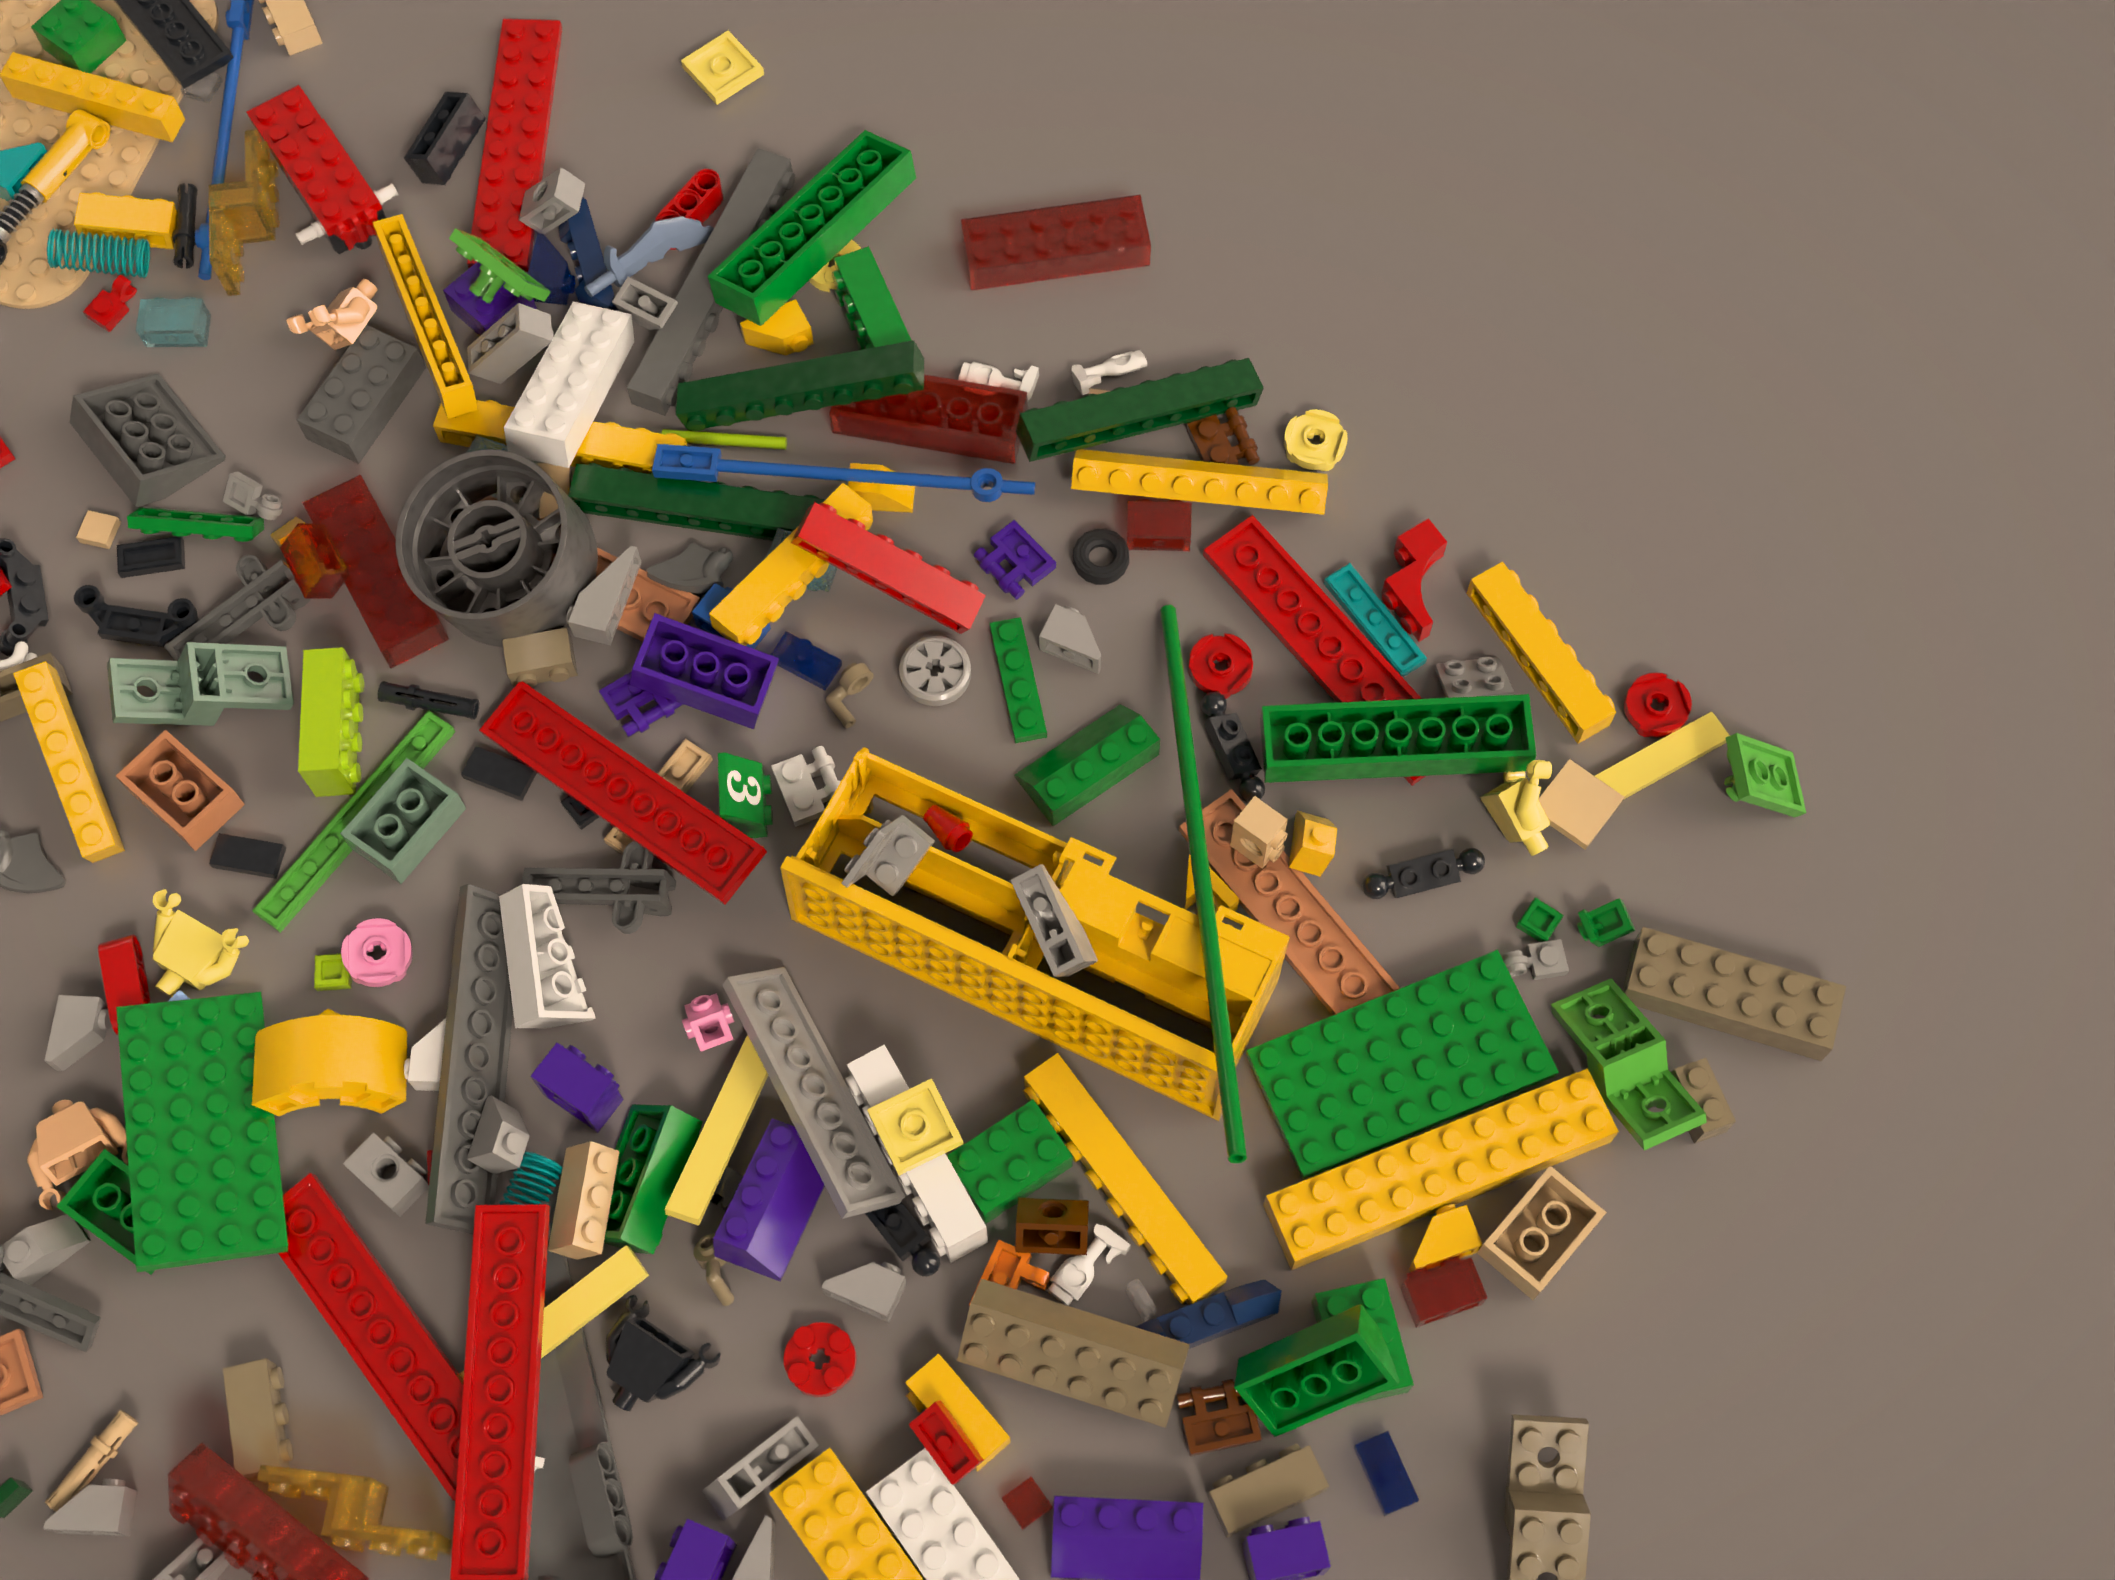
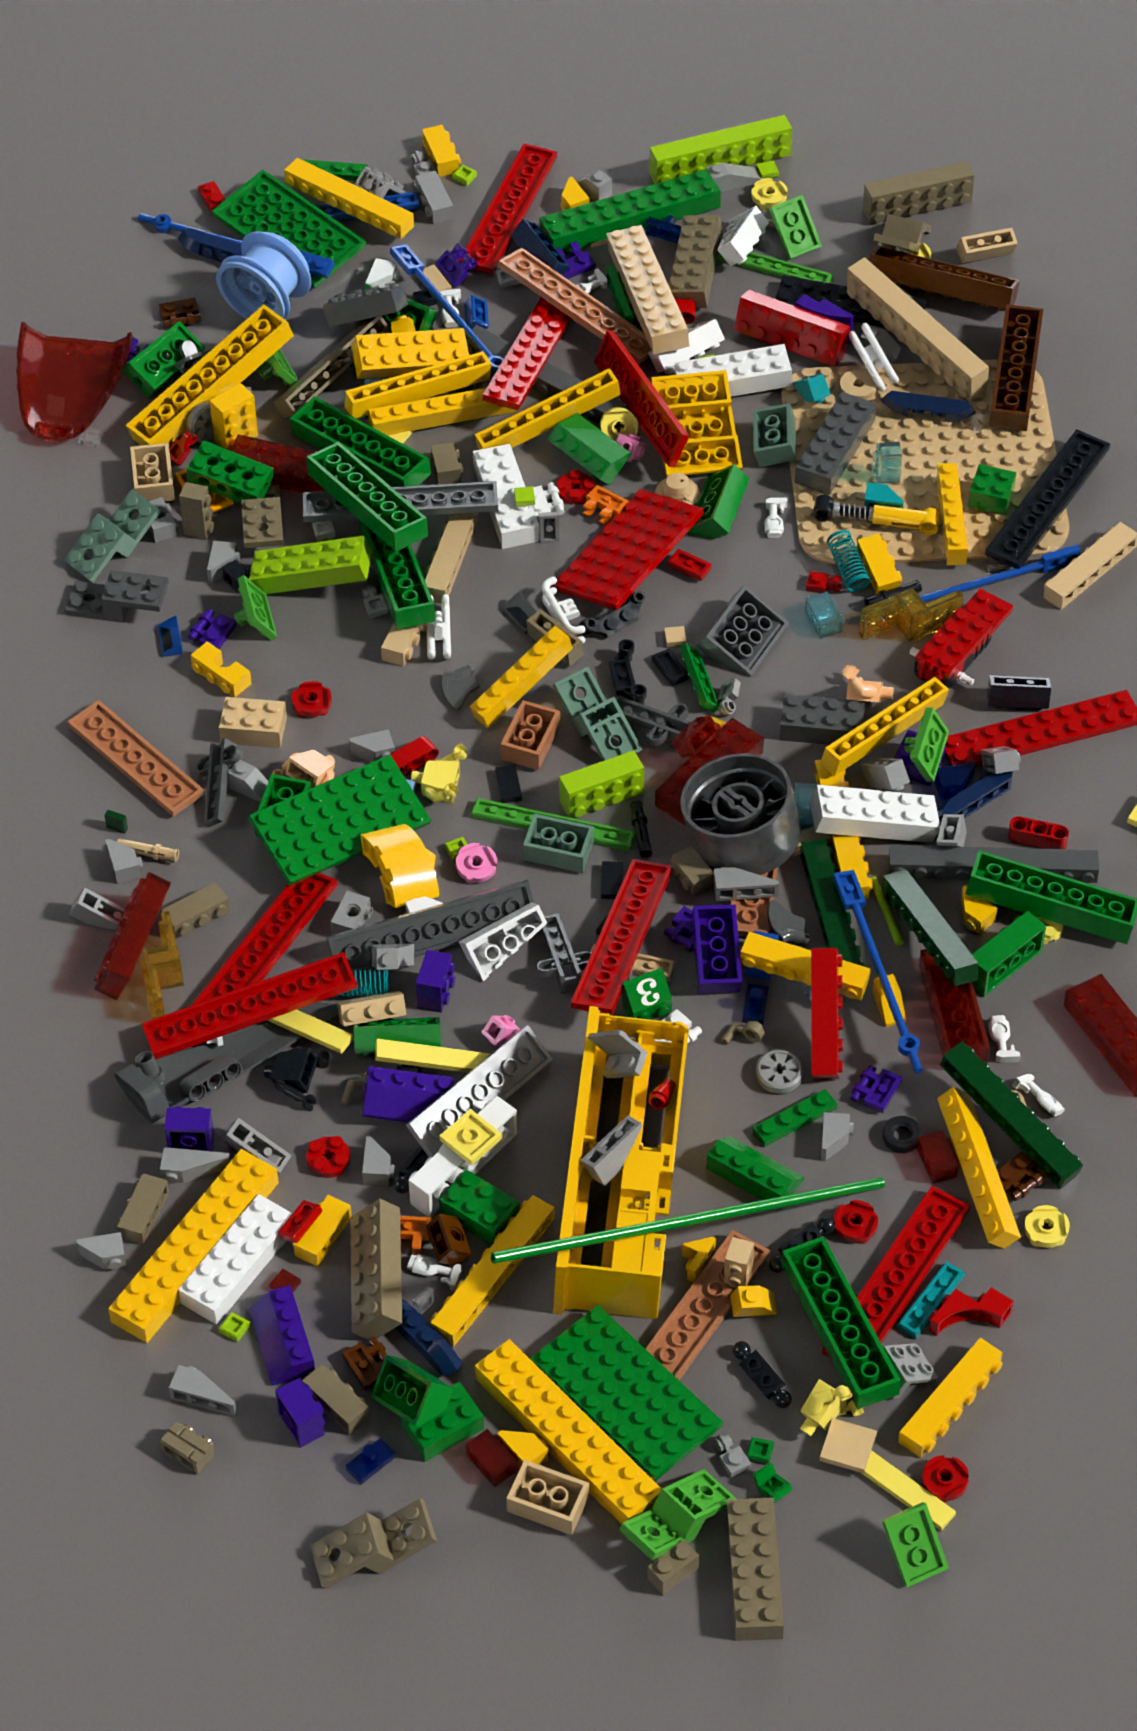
camera: 70 degrees right, 15 degrees down
(650, 247) = (994, 820): sand blue sword -> none

